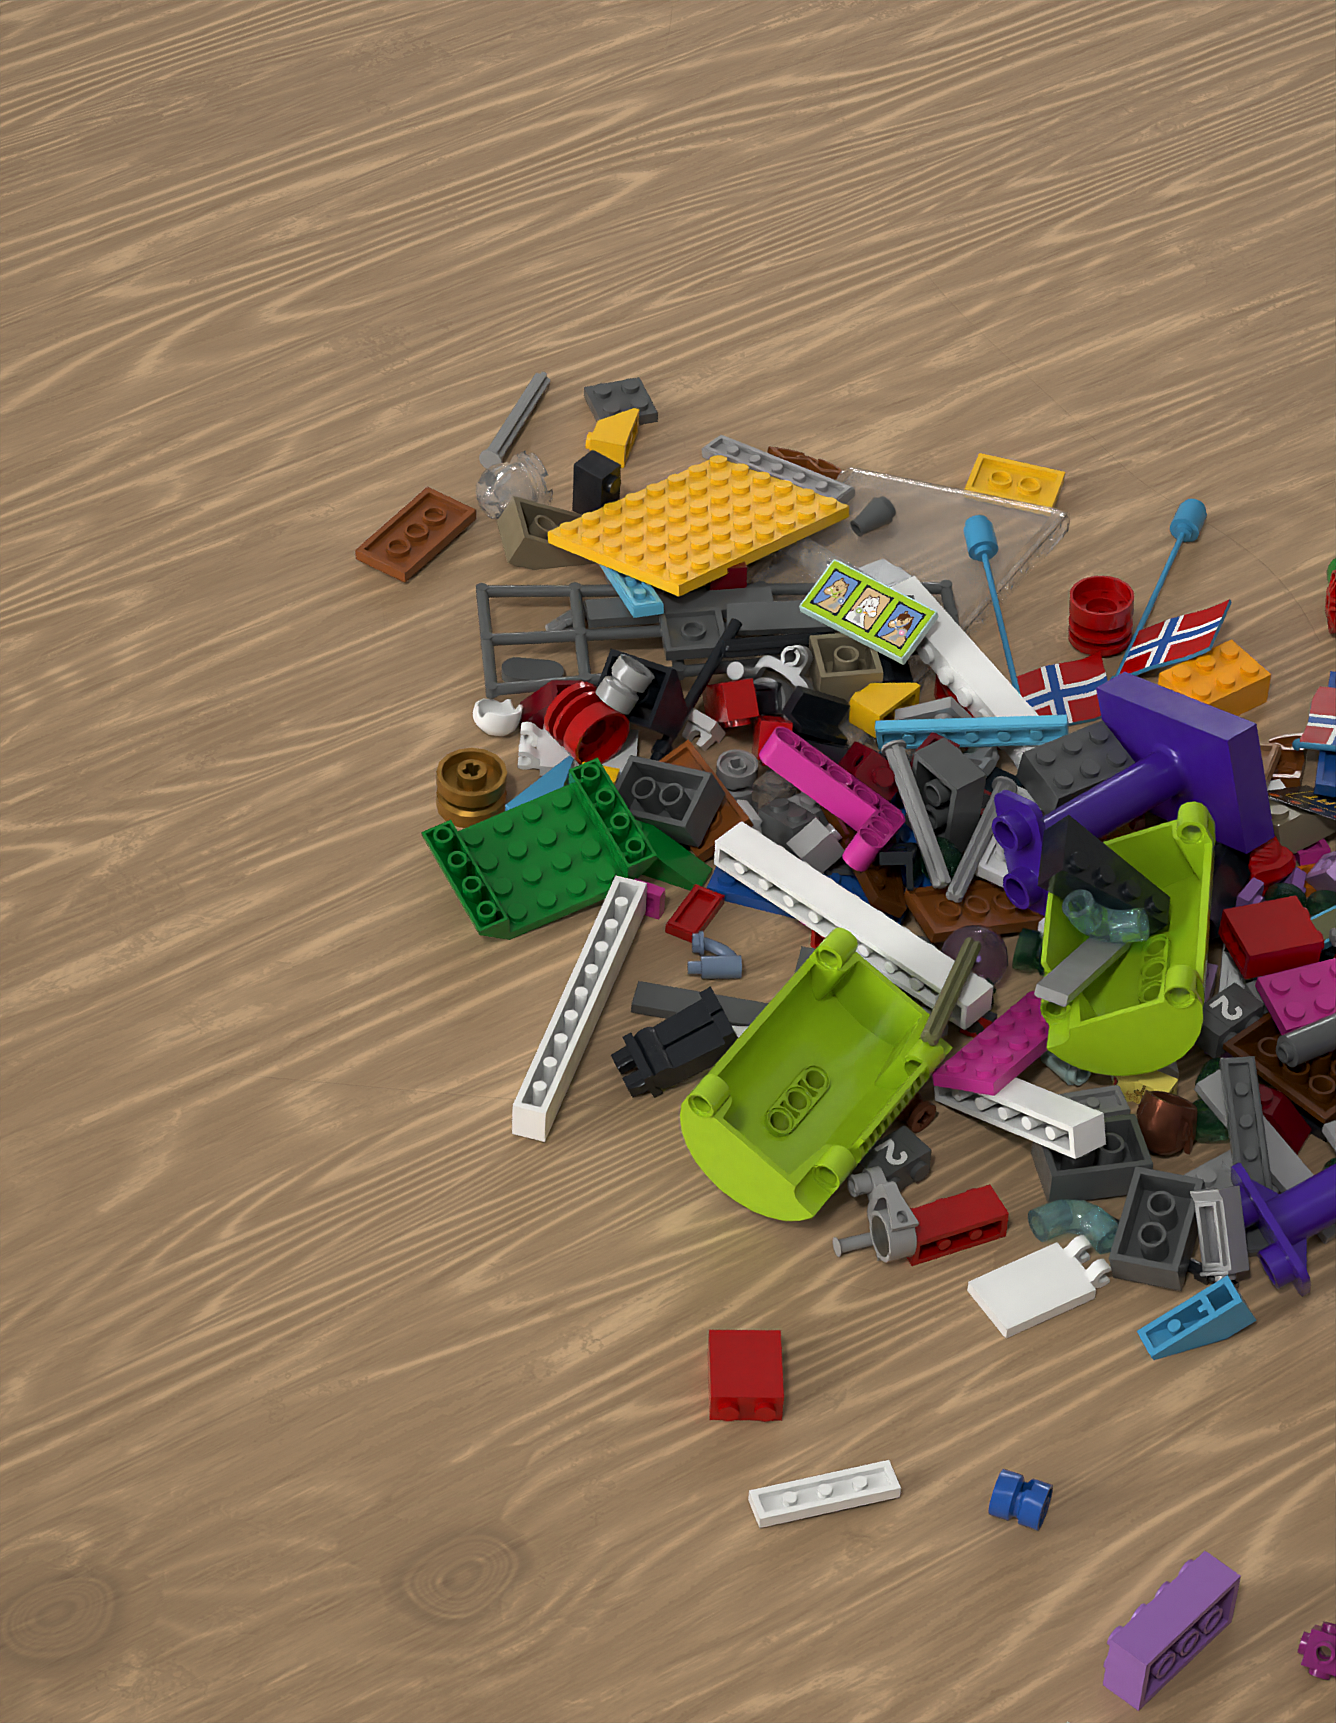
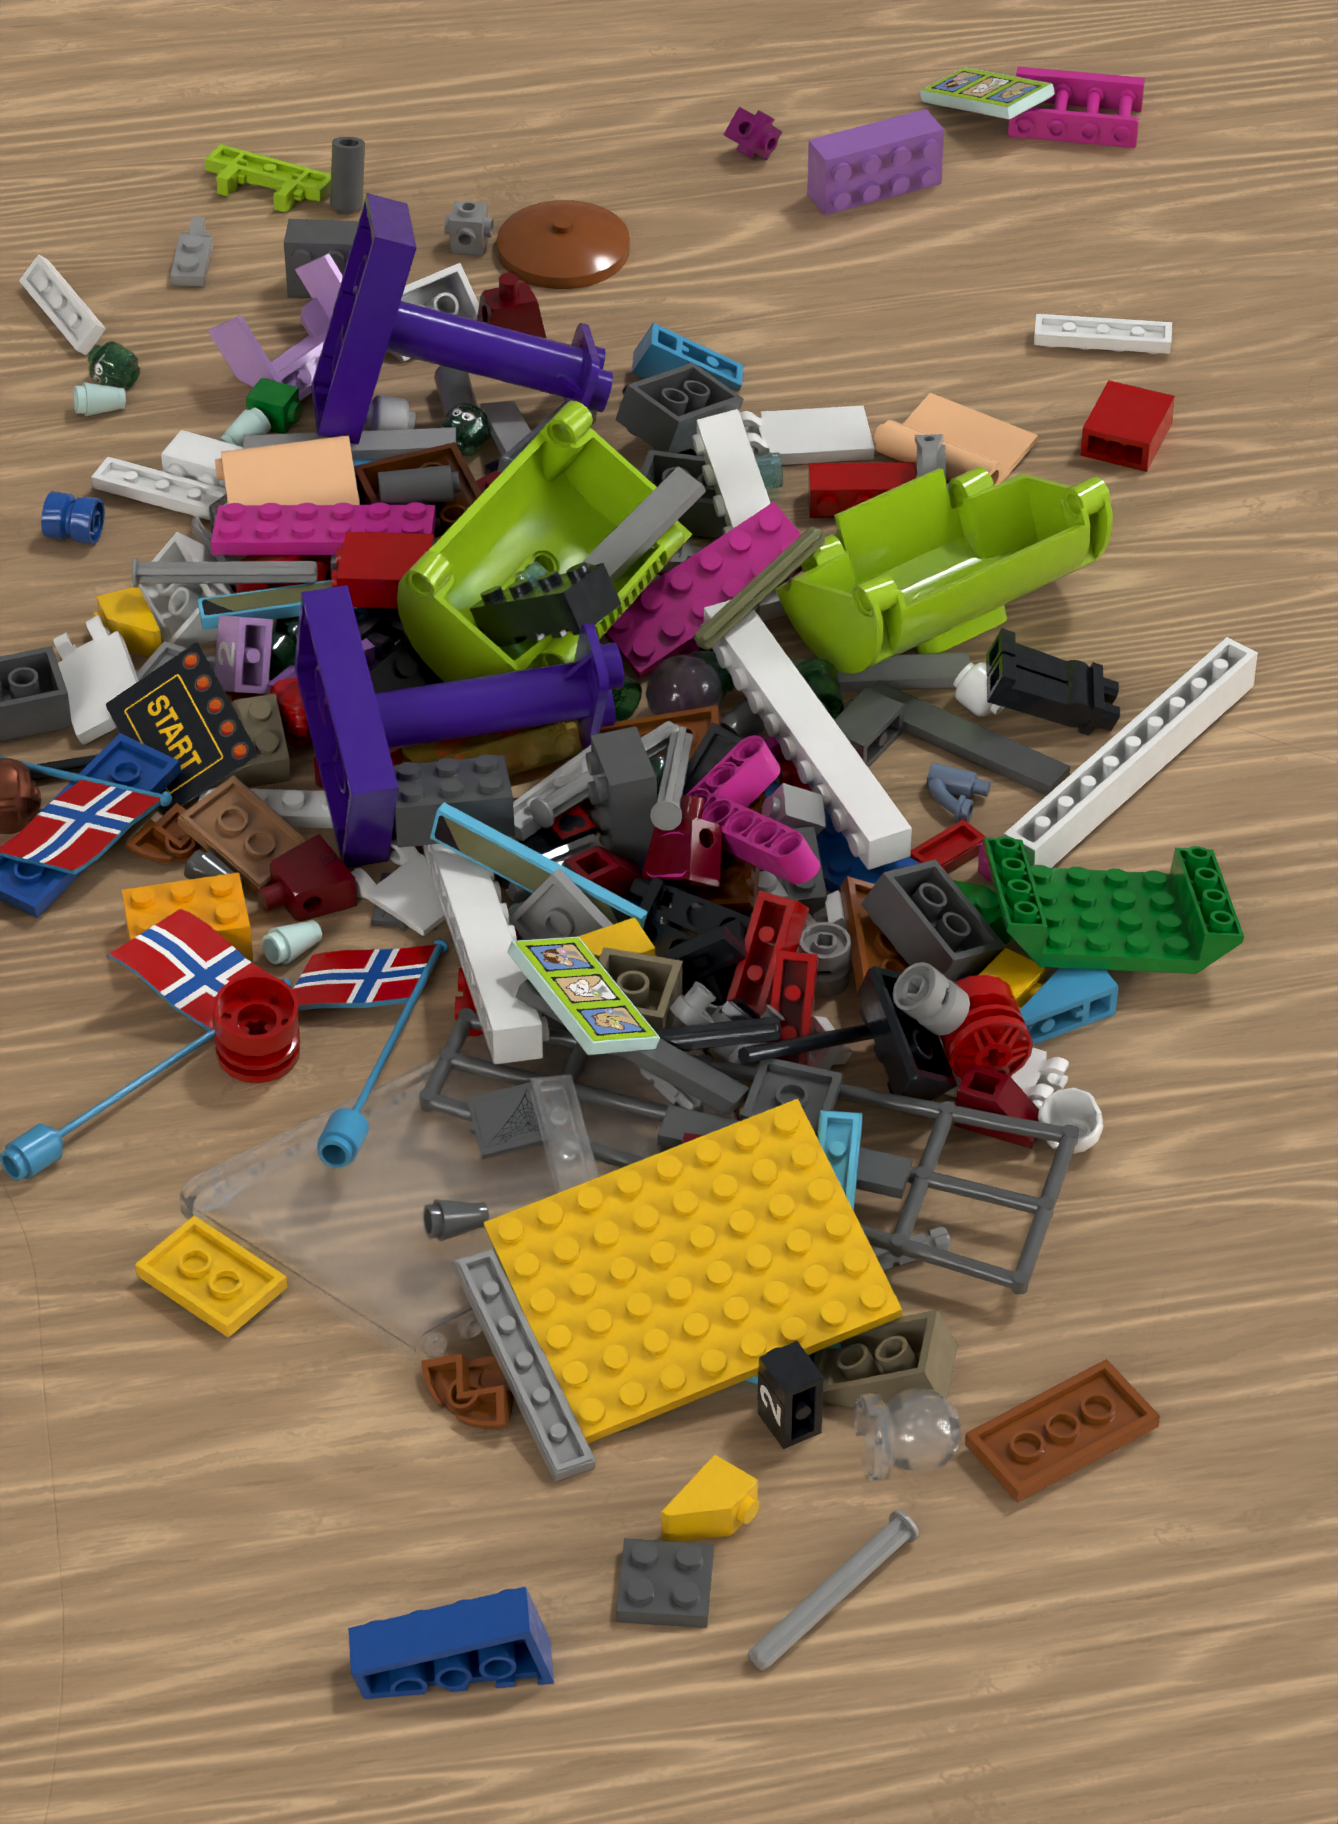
camera: 155 degrees left, 0 degrees up
(470, 786) = (1145, 1033): pearl gold wheel -> none
(530, 669) = (997, 1178): dark grey tile -> none
(716, 326) = (452, 1646): none -> blue wedge
(897, 1311) = (968, 438): none -> light nougat door
(1020, 1499) = (937, 280): blue wheel -> none
(1221, 1231) = (631, 365): light grey window -> none

